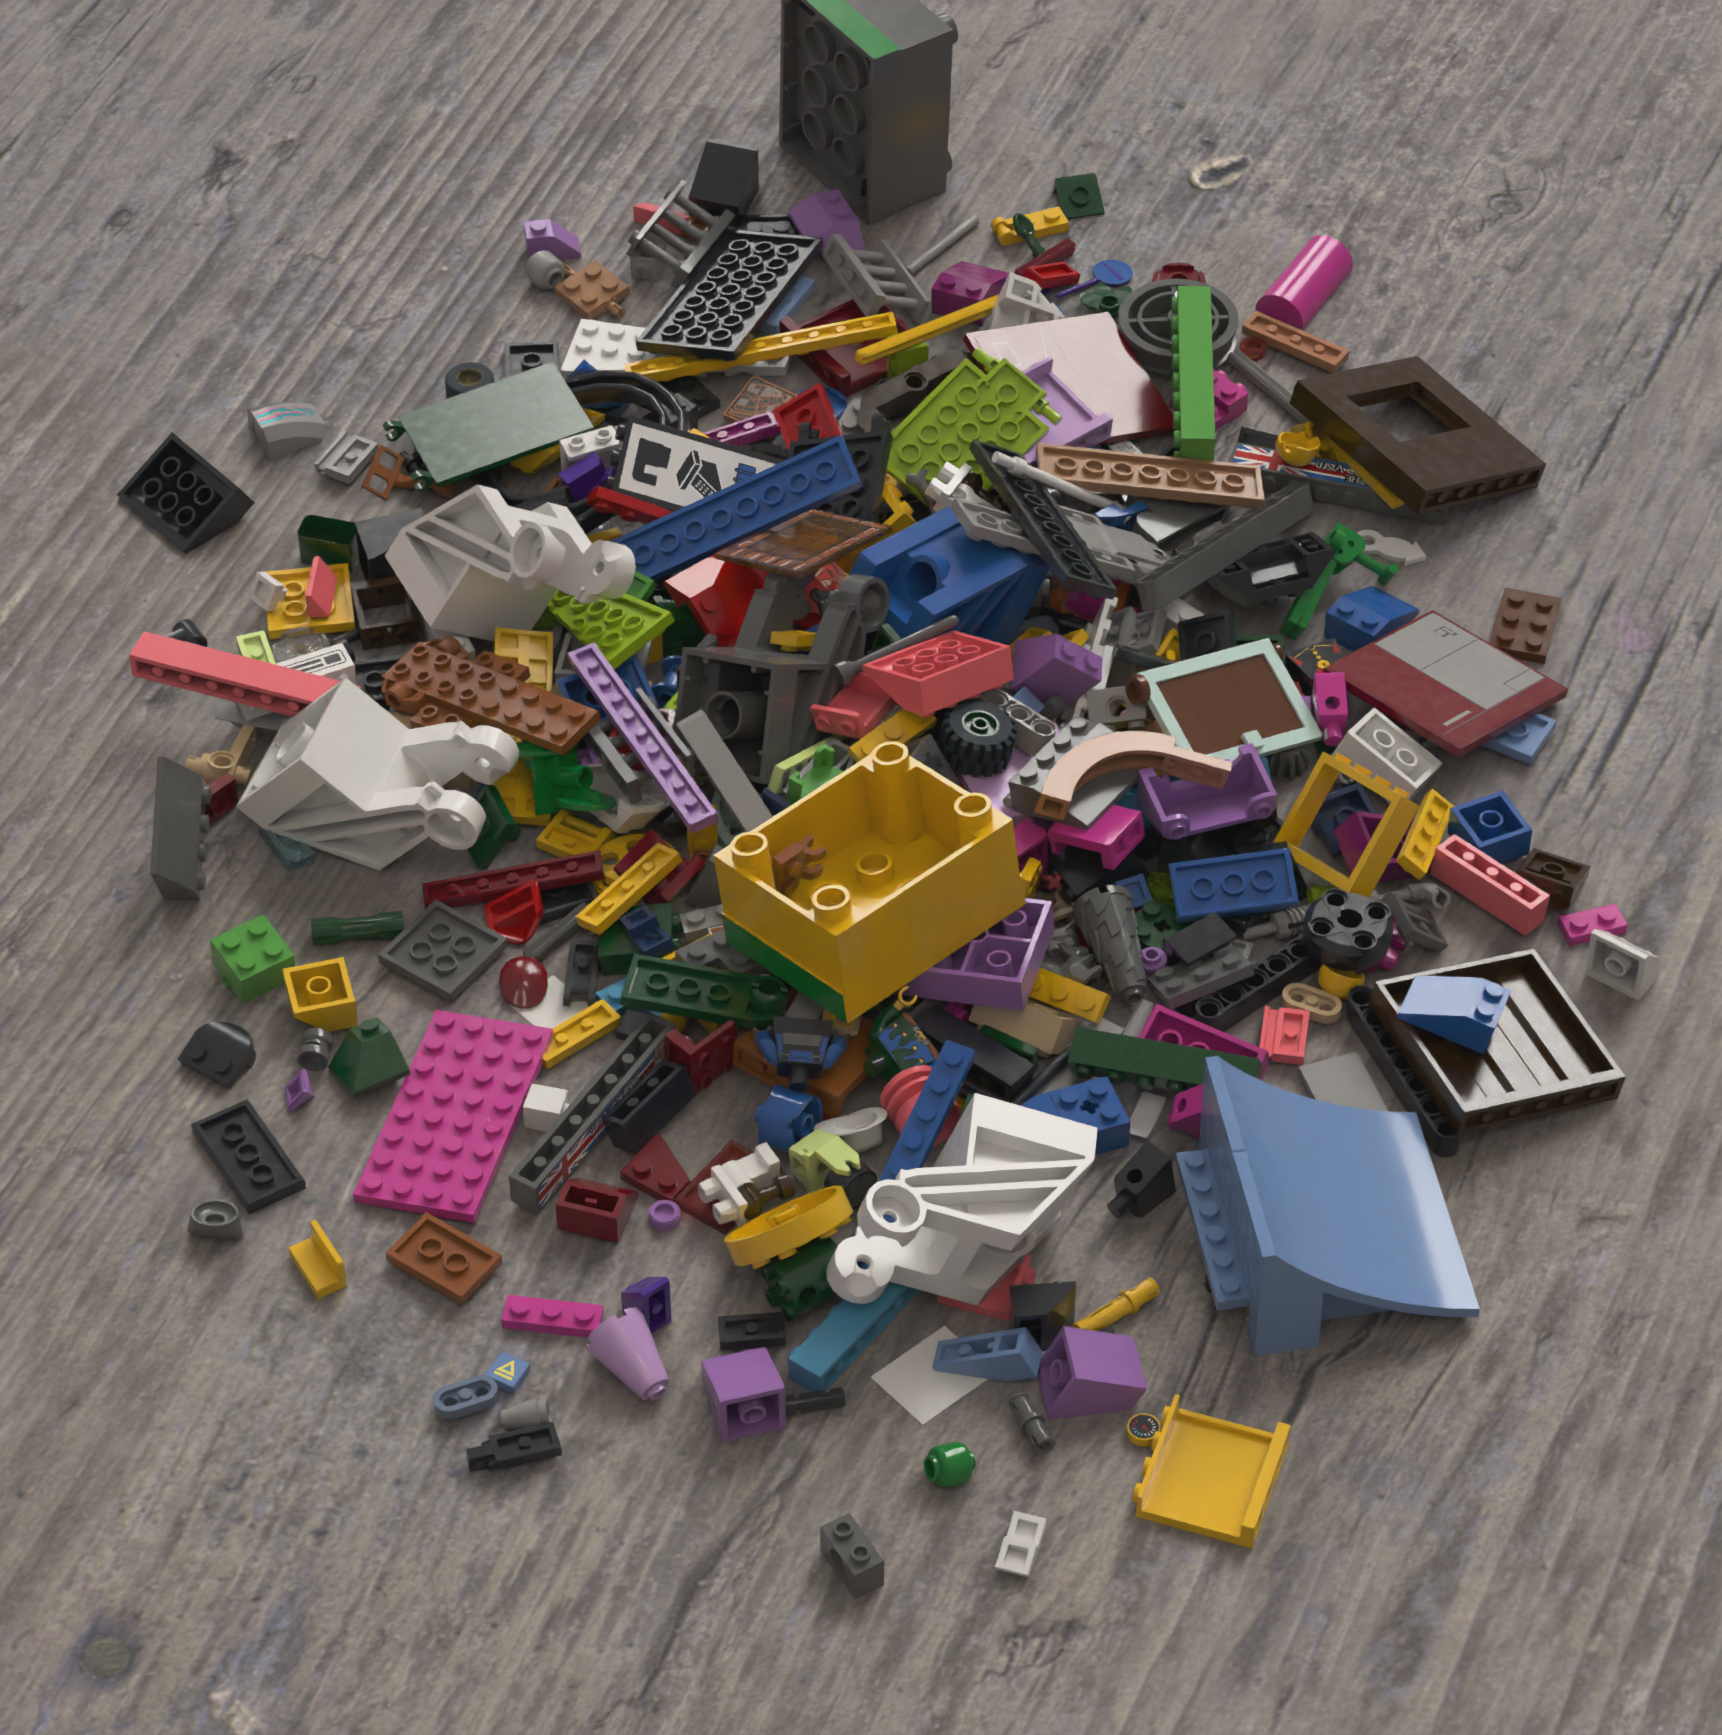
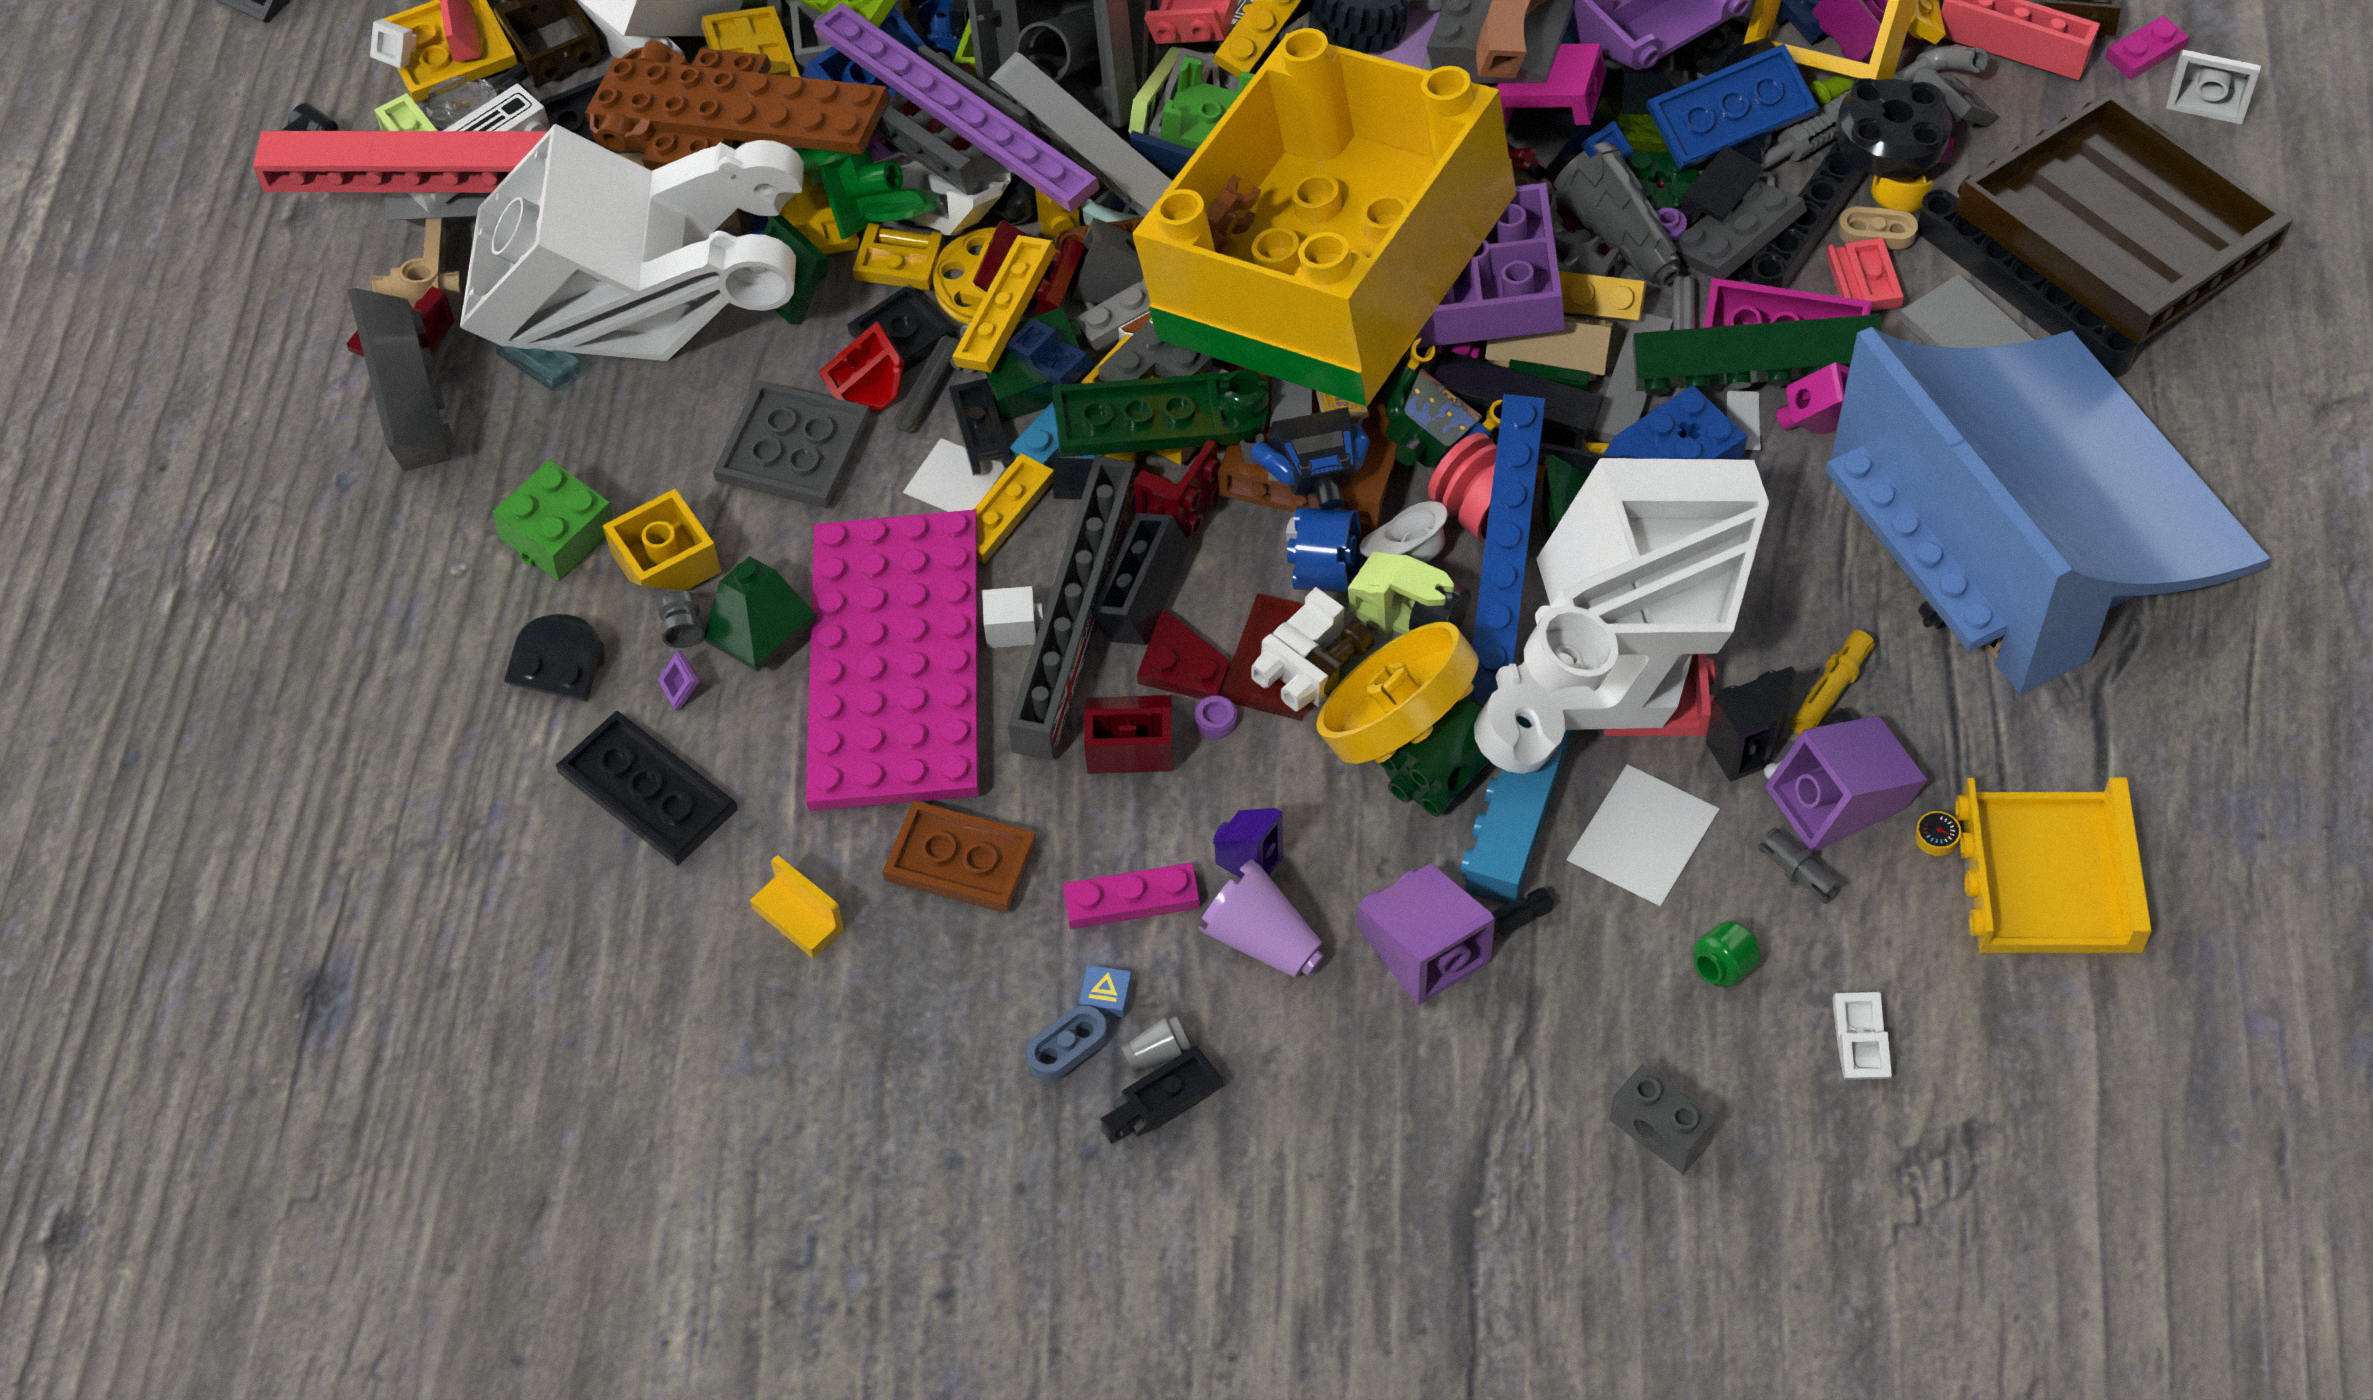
camera: 15 degrees left, 10 degrees up
(215, 1220) = (639, 889): dark grey piece -> none
(334, 929) = (643, 453): dark green axle -> none
(495, 883) = (833, 334): dark red tile -> none
(523, 982) = (910, 457): dark red hat -> none
(751, 1331) = (1395, 843): black plate -> none
(994, 1355) = (1709, 790): medium blue slope -> none
(1042, 1078) = (1609, 406): black bar -> none
(1143, 1182) = (1794, 509): black torso -> none
(1455, 1008) = (2078, 188): slope -> none

